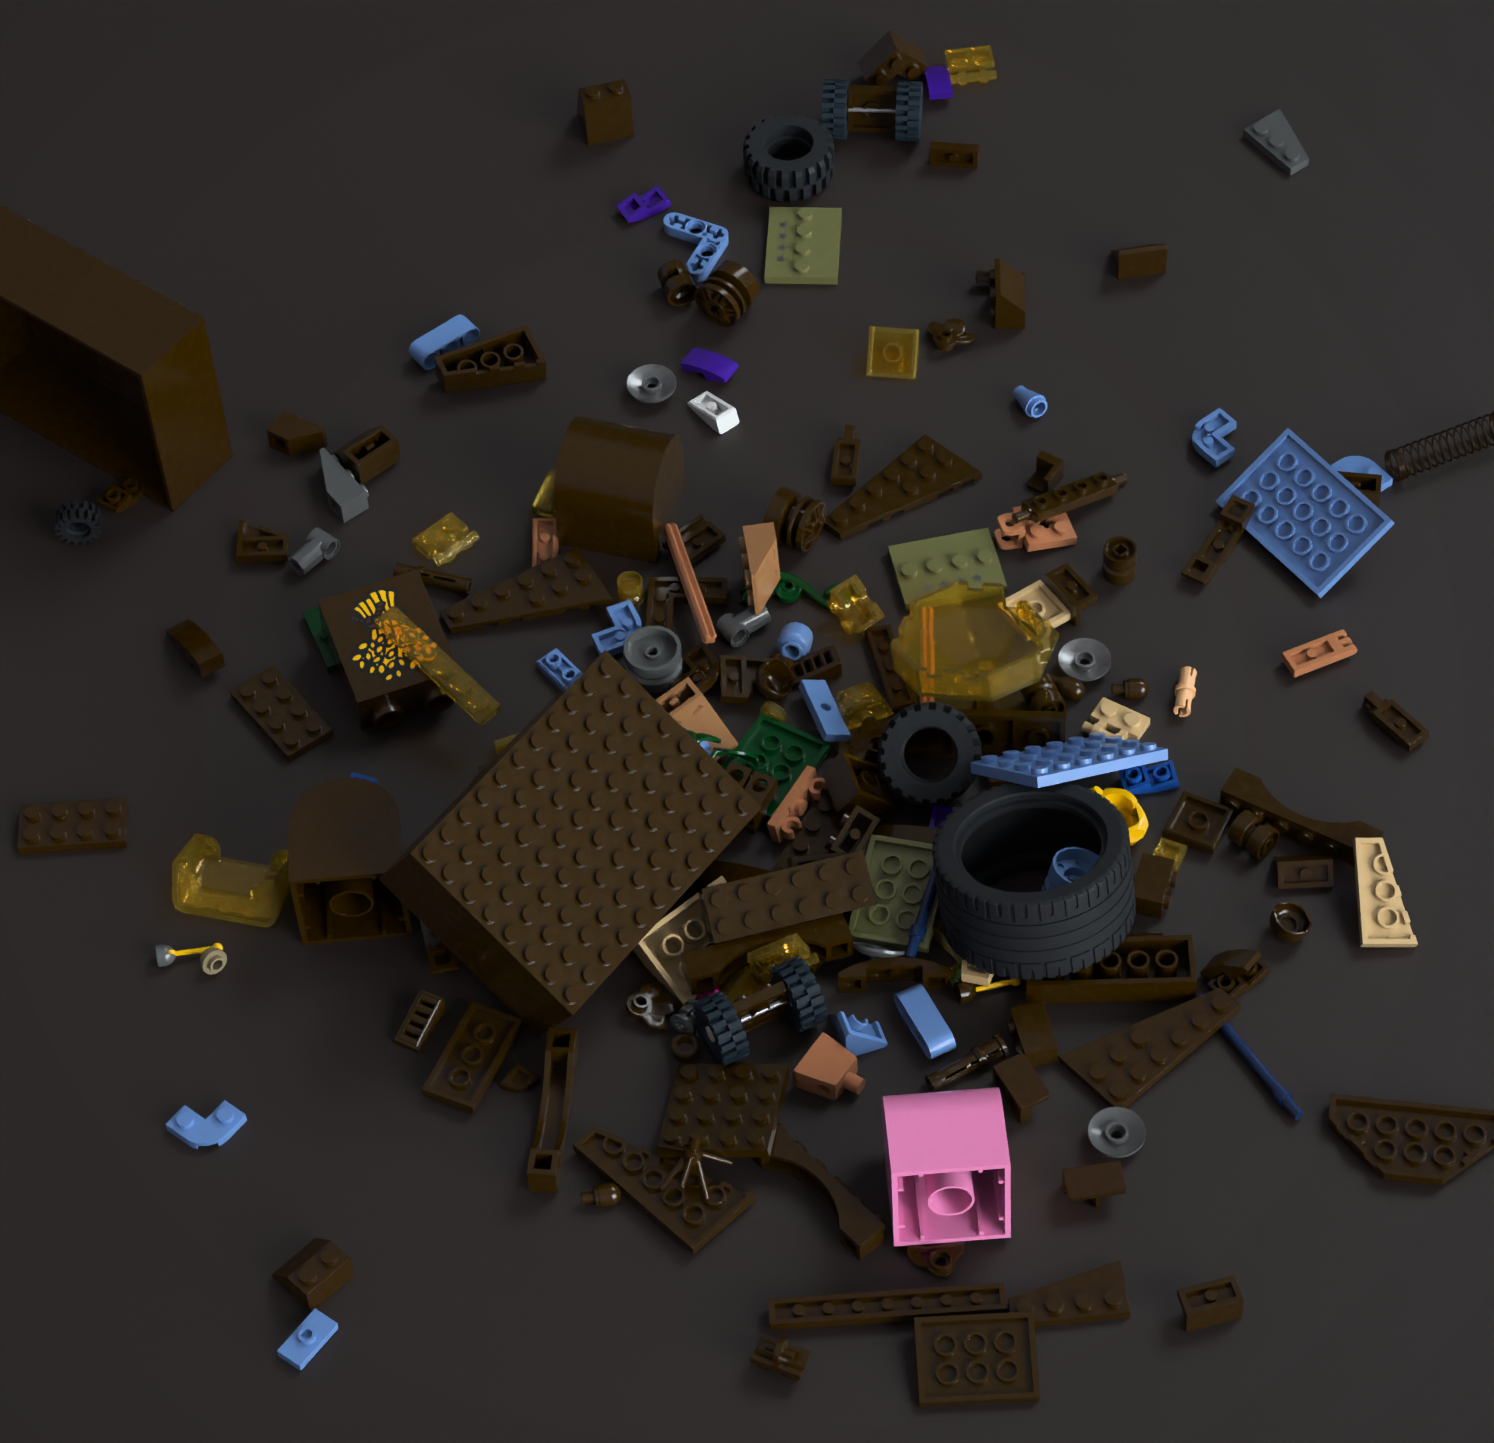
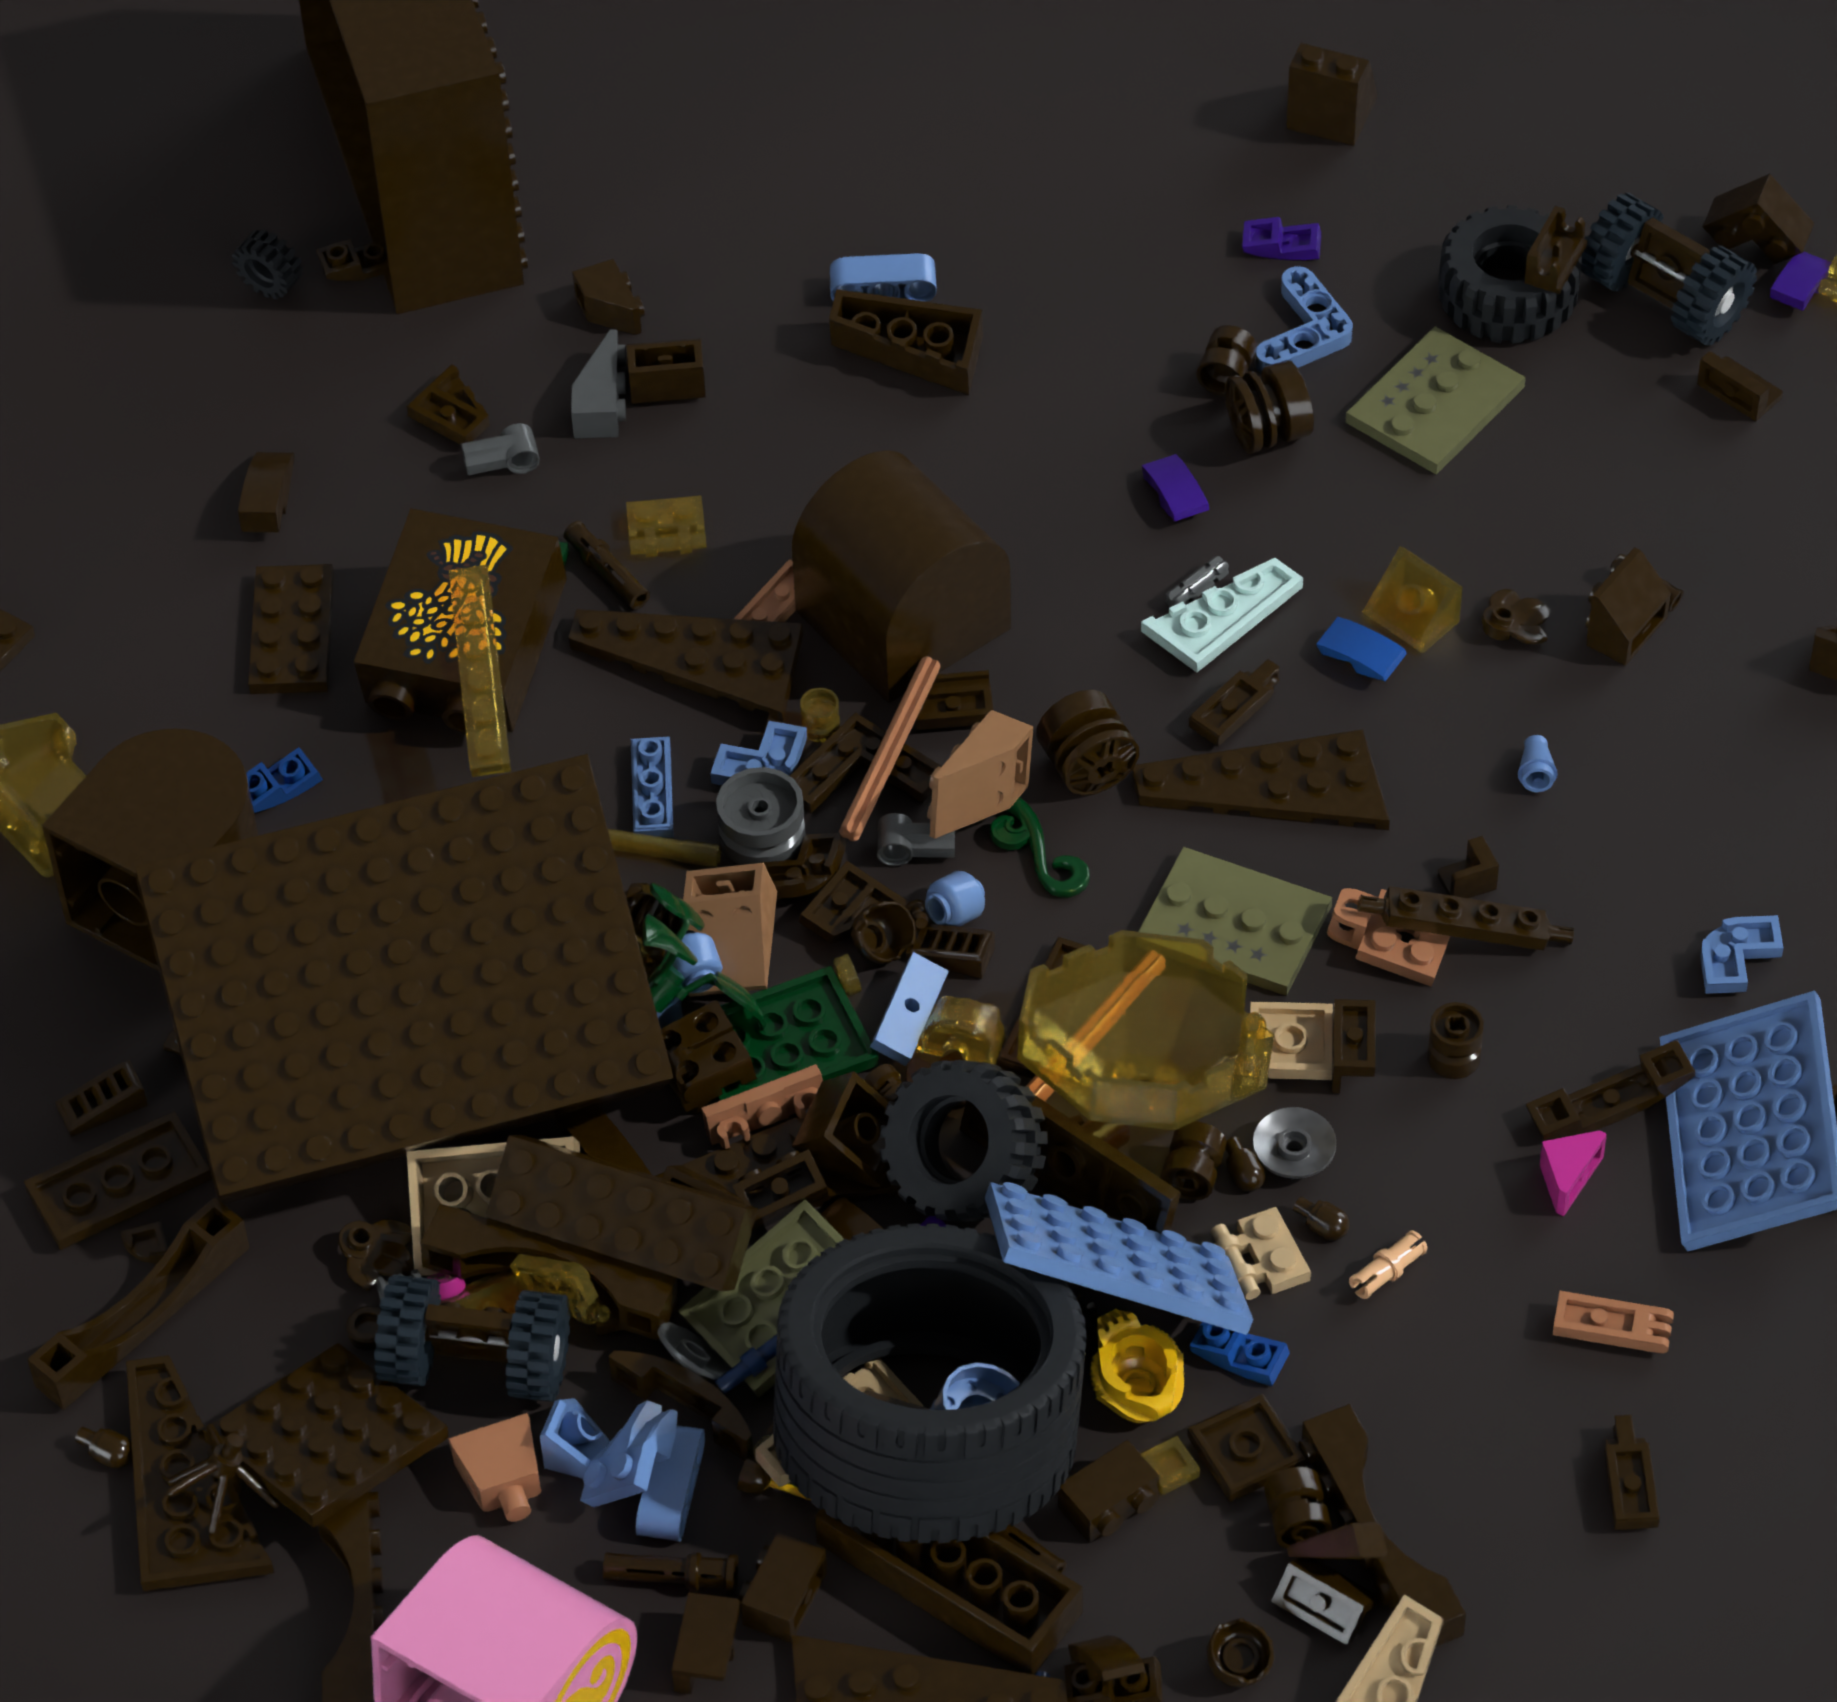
camera: 35 degrees right, 0 degrees up
(651, 383) = (1080, 470): flat silver dish -> none
(714, 412) = (1130, 551): white slope -> none
(766, 408) = (1198, 581): none -> dark grey axle
(796, 417) = (1222, 615): none -> light aqua wing
(815, 129) = (1555, 252): none -> dark brown hinge
(853, 606) = (1067, 896): clear yellow cylinder -> none
(888, 391) = (1364, 648): none -> blue slope
(899, 1019) = (628, 1459): none -> medium blue plate
(1229, 592) = (1569, 1165): none -> dark pink slope
(1303, 831) = (1346, 1542): none -> dark brown slope

